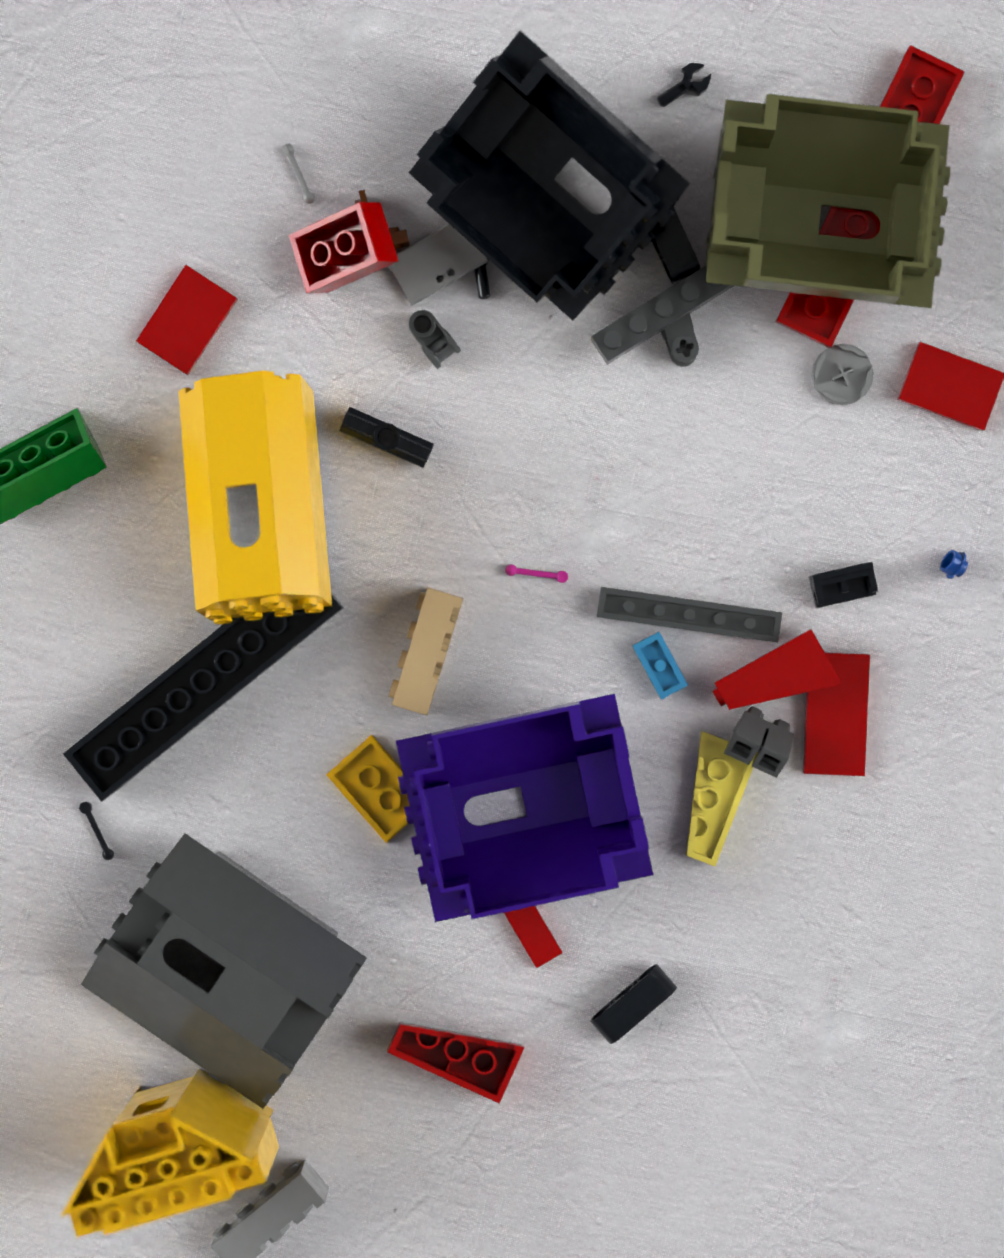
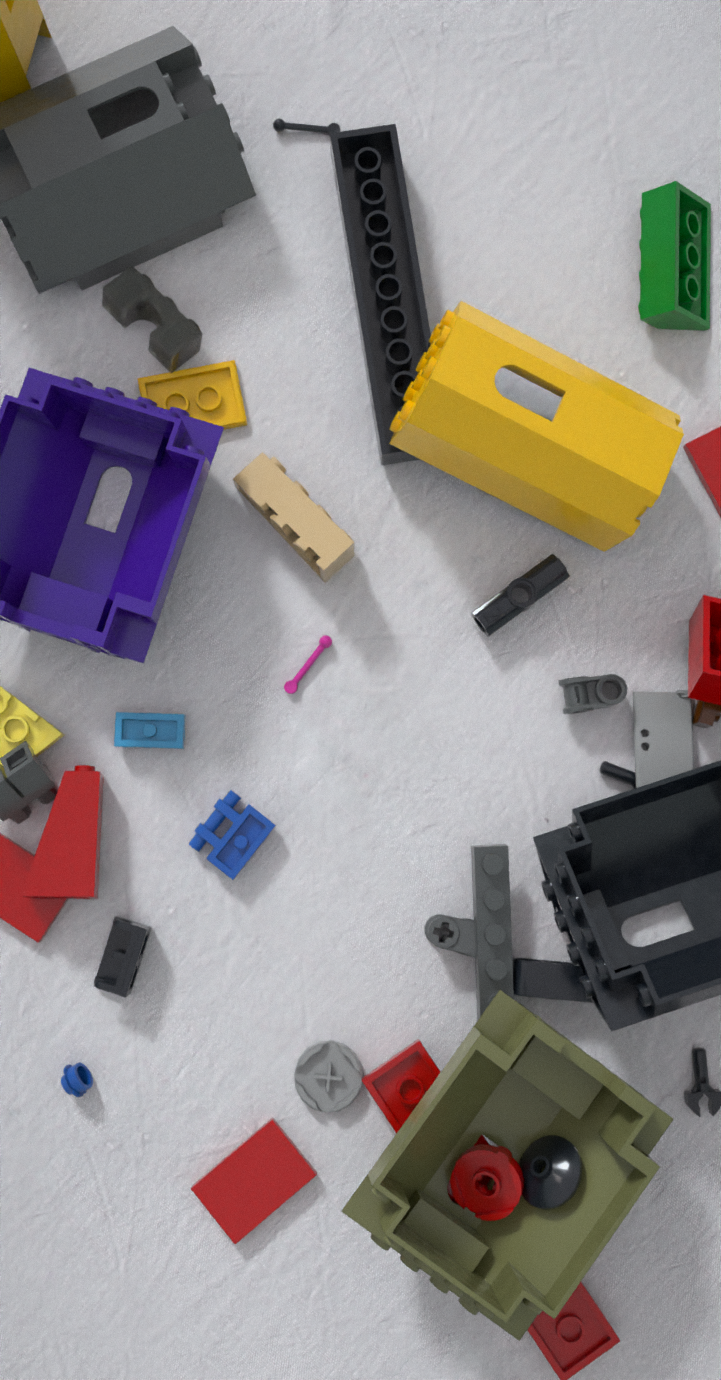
camera: 115 degrees right, 5 degrees down
(322, 881) = (135, 298): none -> clear smoke arch
(689, 614) = (181, 788): dark grey plate -> none
(704, 545) = (241, 839): none -> blue plate
(817, 168) = (561, 1175): none -> black dish
(834, 205) = (499, 1165): none -> red plate

